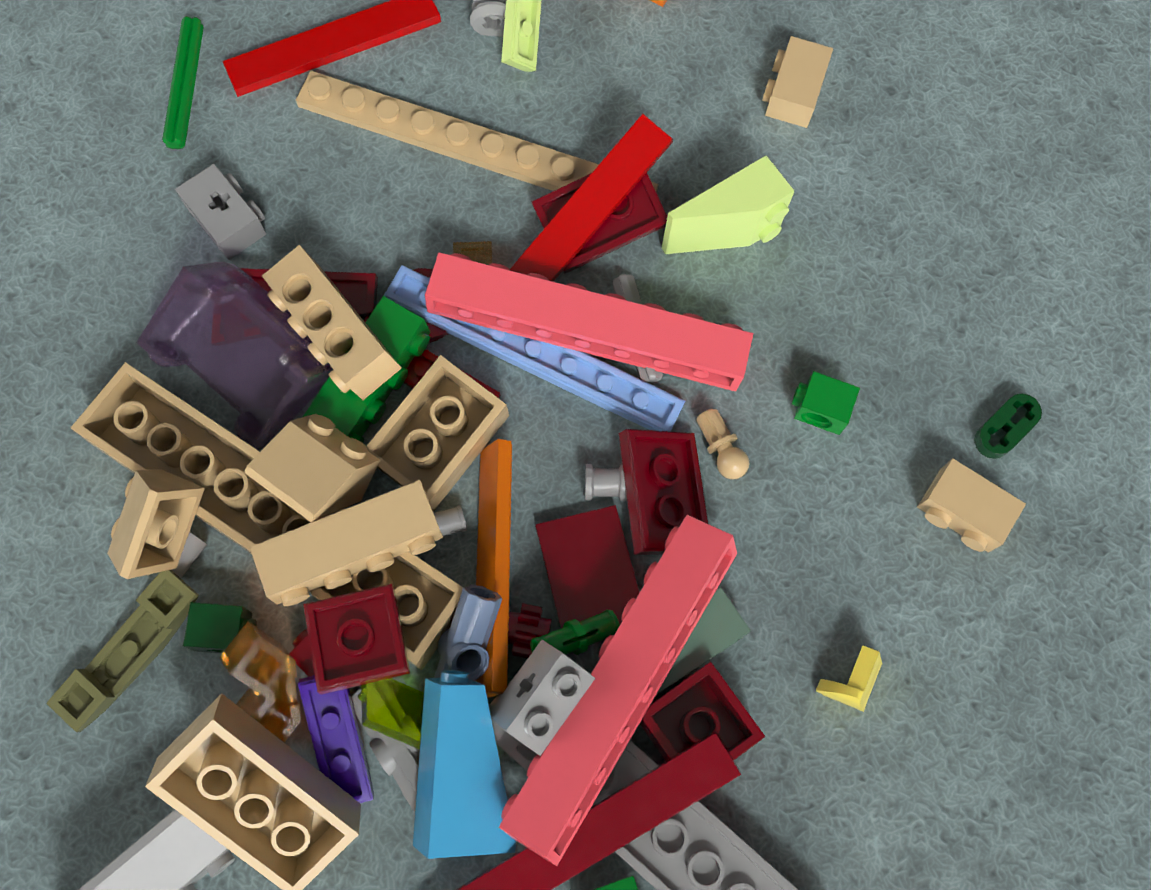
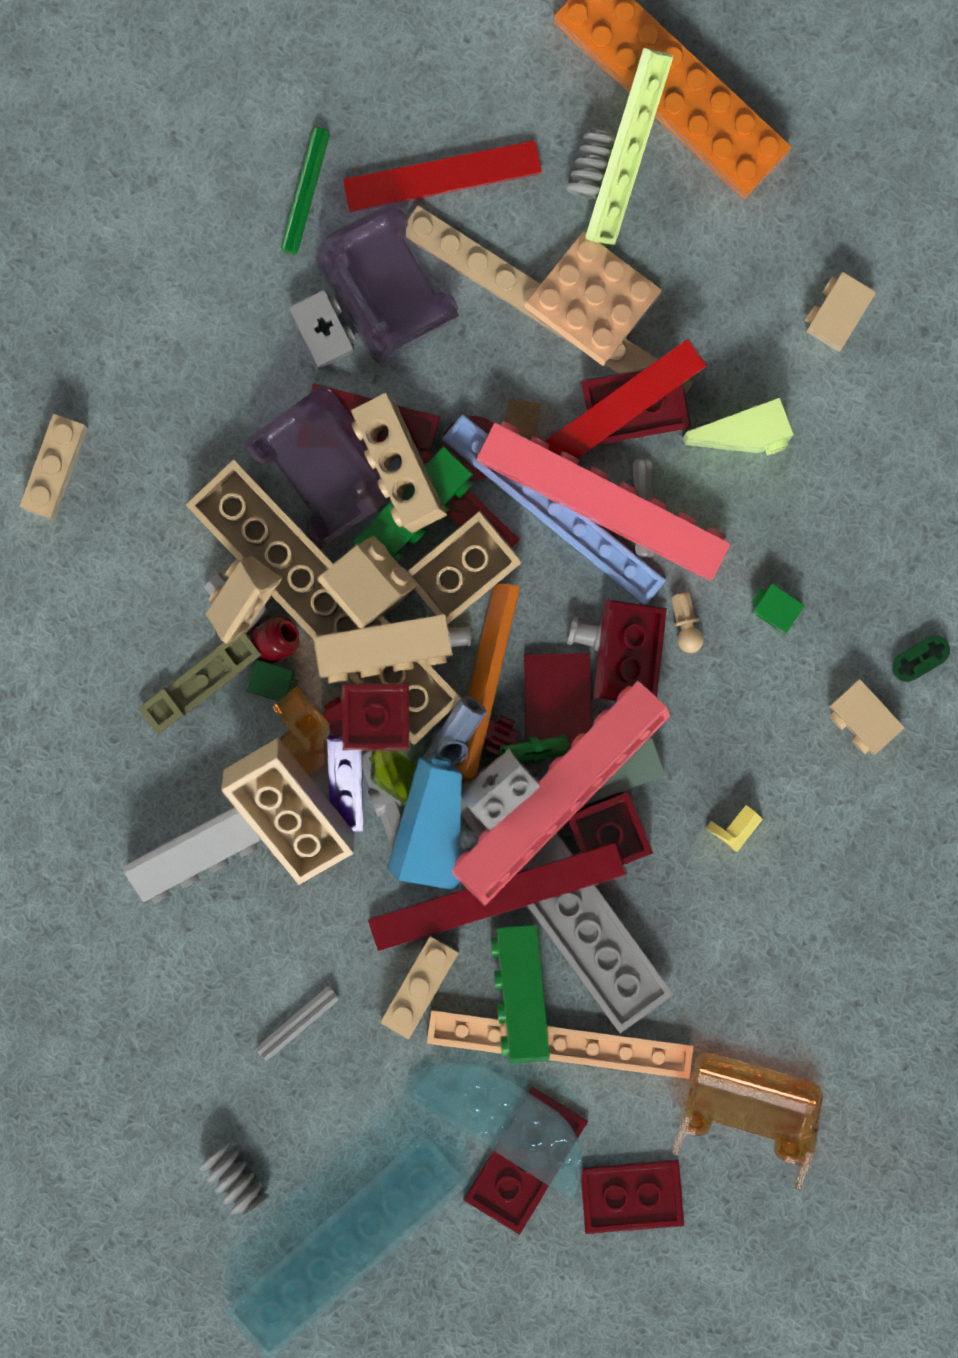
camera: 15 degrees right, 15 degrees up
(215, 572) = (275, 639): none -> dark red head
(278, 147) = (383, 284): none -> clear purple windscreen
(524, 120) = (593, 298): none -> light nougat plate

